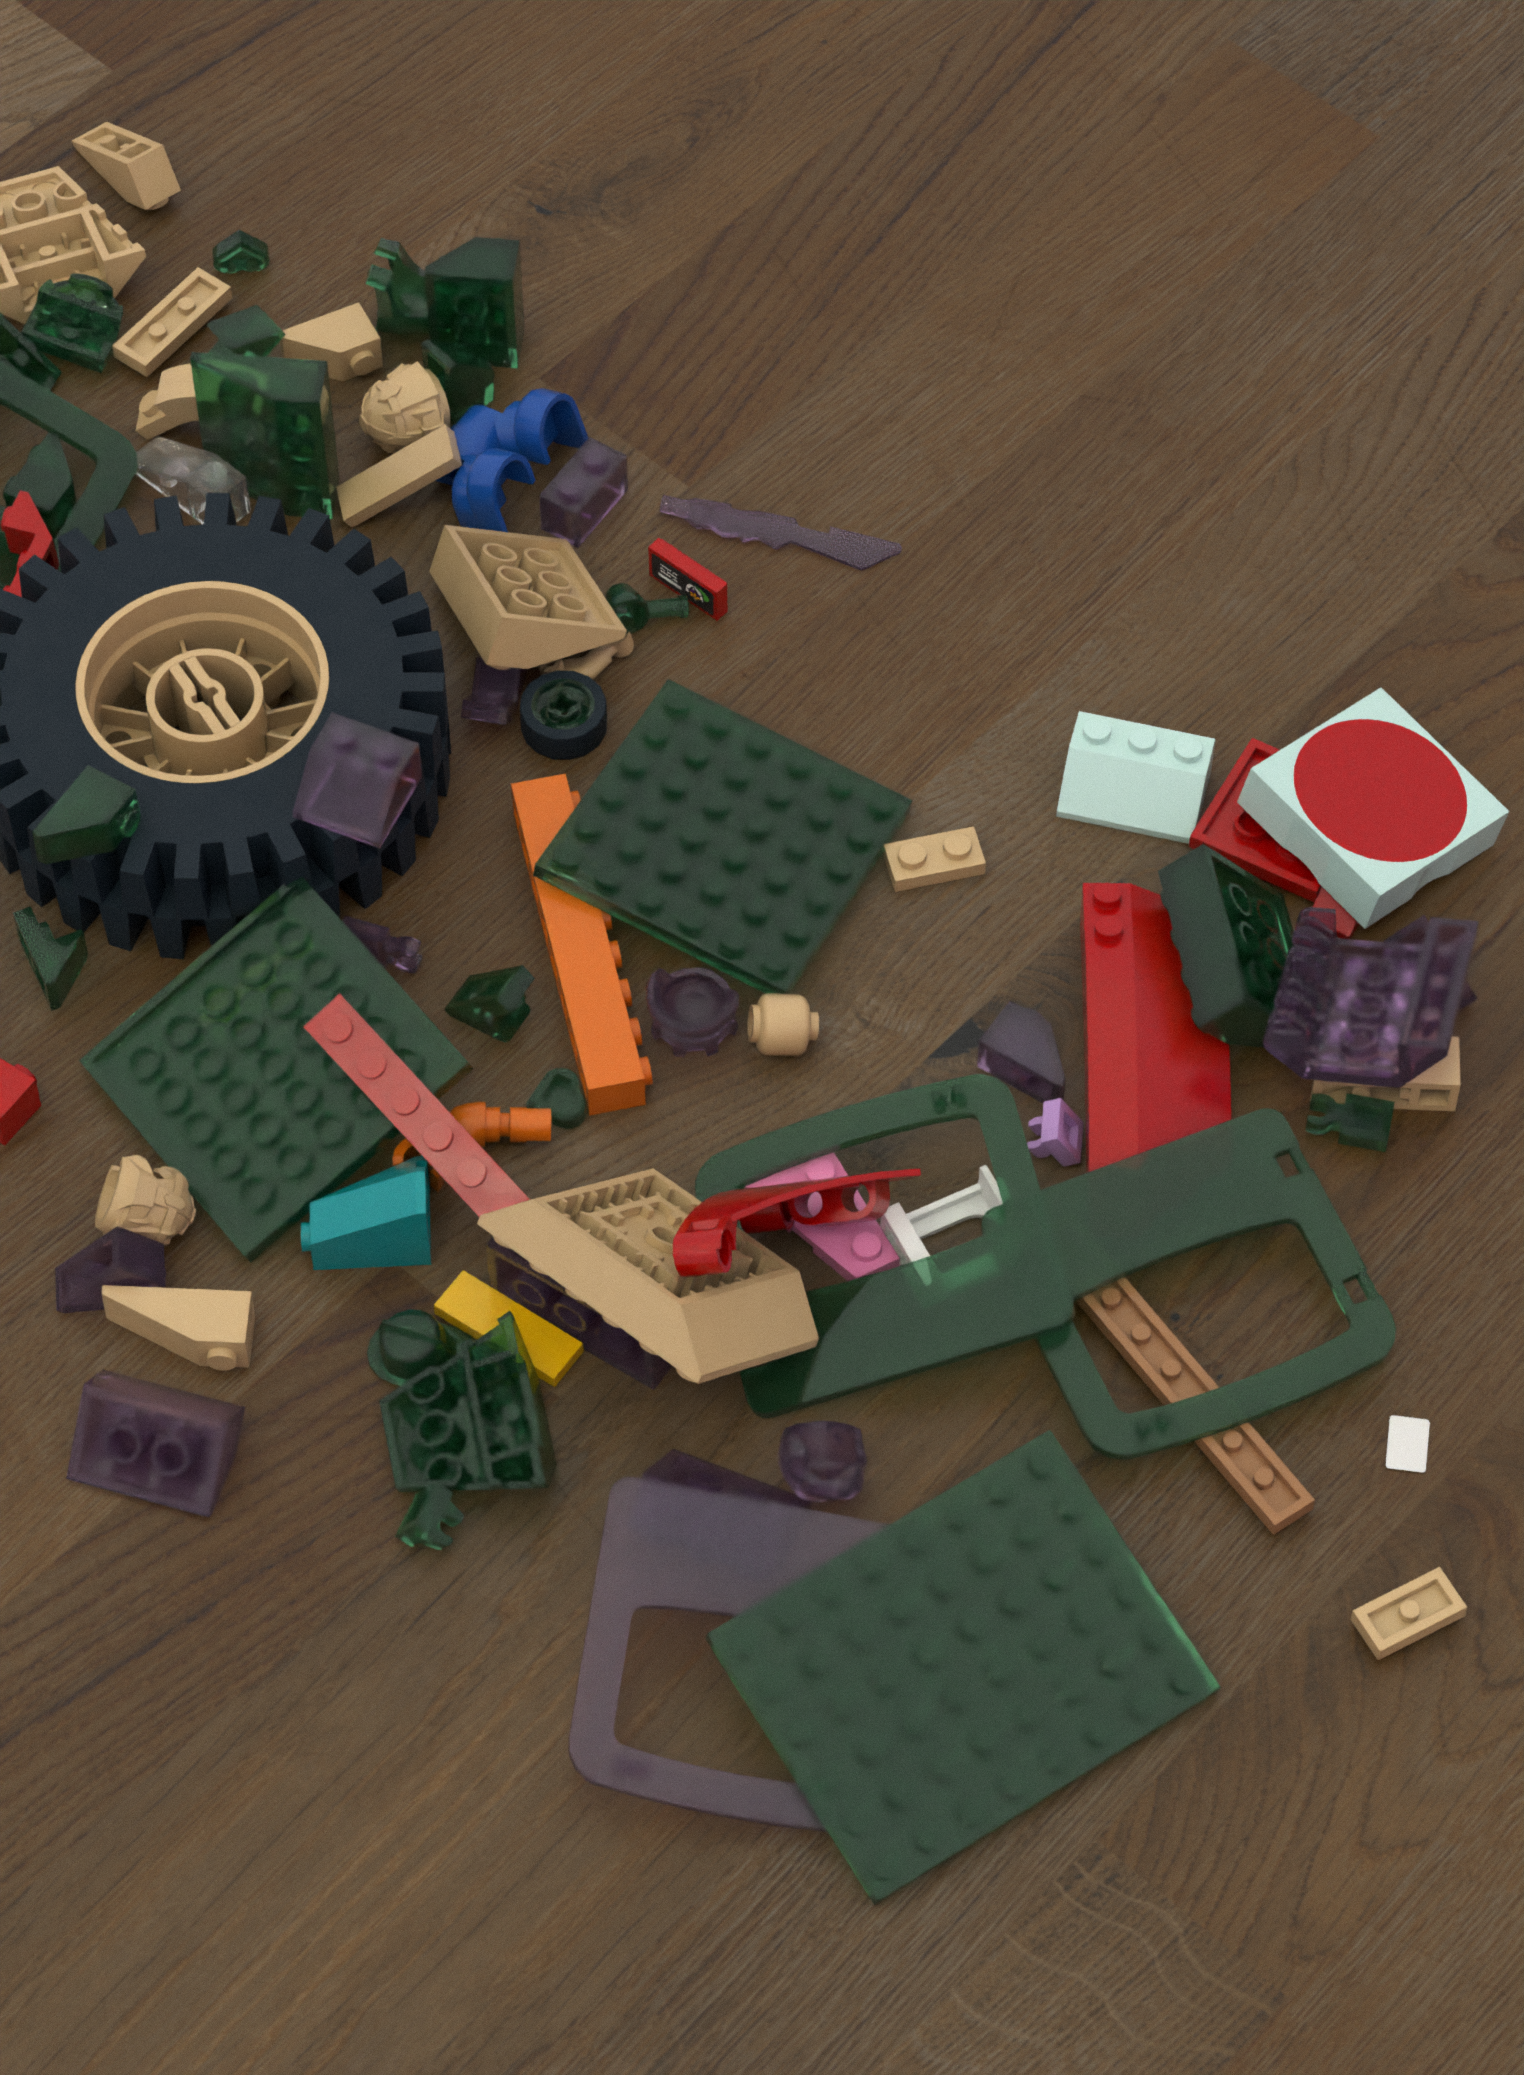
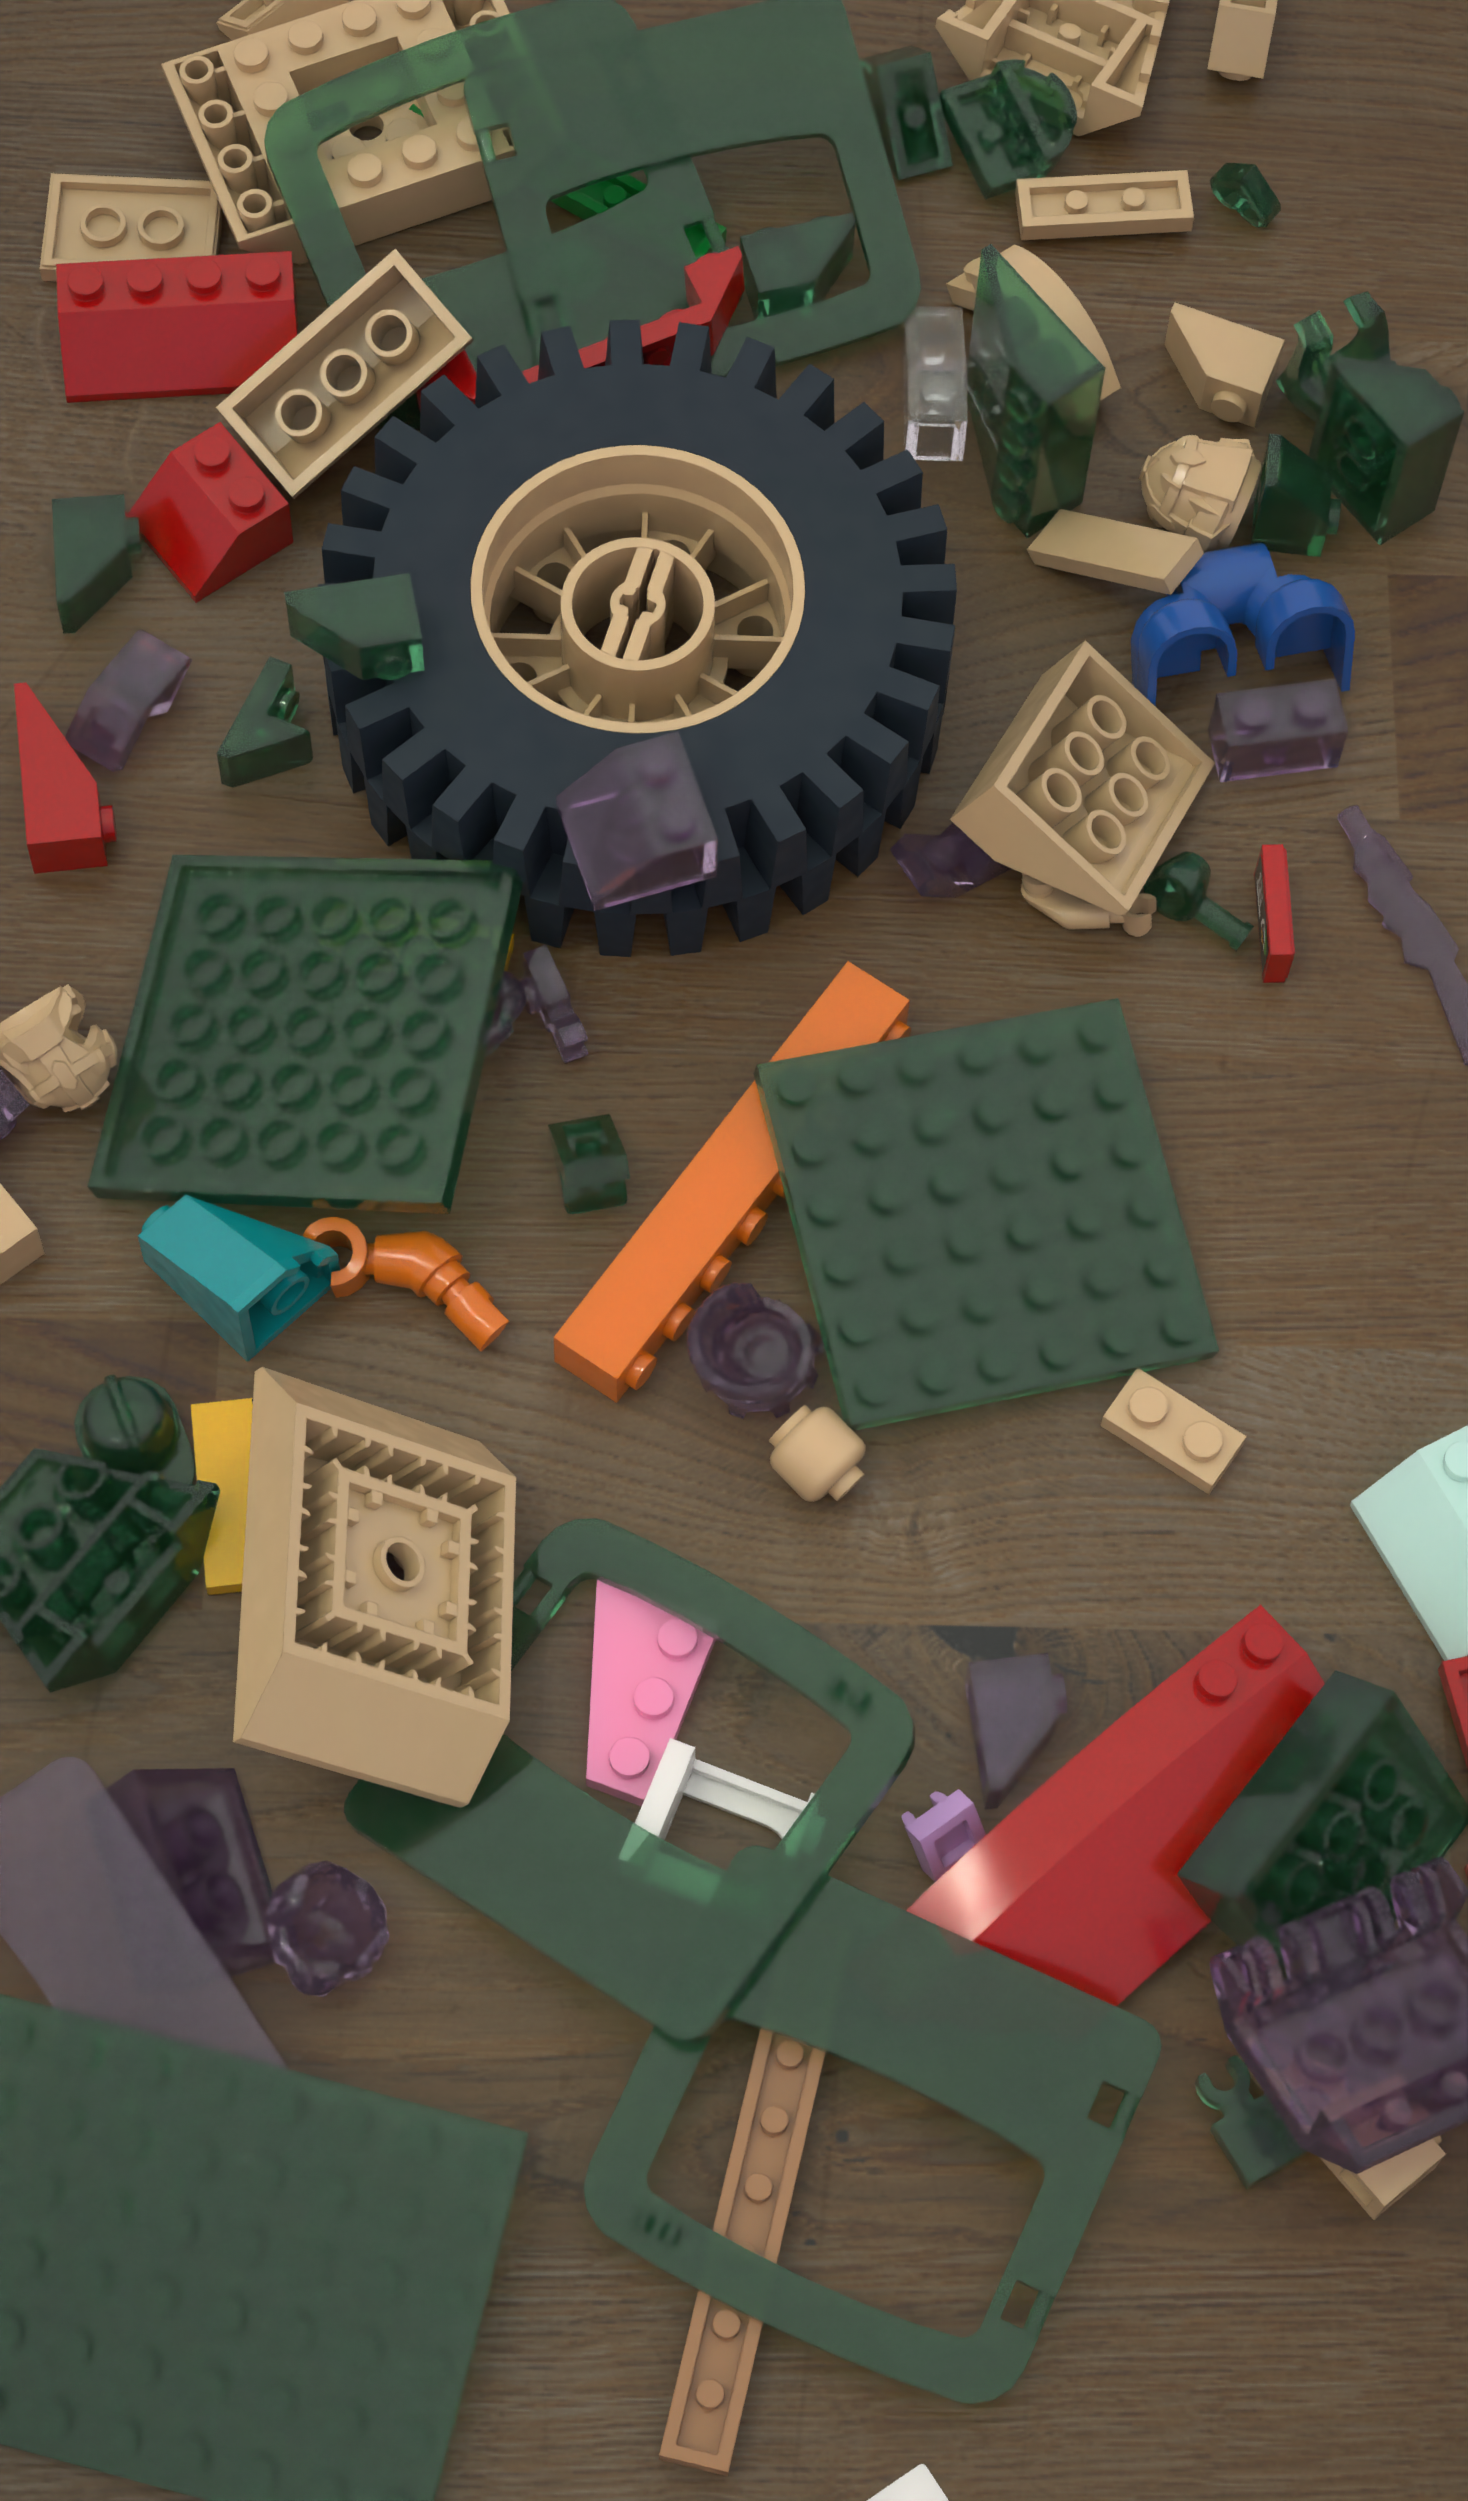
camera: 45 degrees right, 10 degrees up
(246, 333) = (1128, 281): clear green slope -> none
(413, 1108) = (346, 1206): plate -> none
(561, 1093) = (538, 1315): clear green tile -> none
(569, 734) = (1003, 965): black wheel -> none
(709, 1232) = (532, 1611): red panel -> none

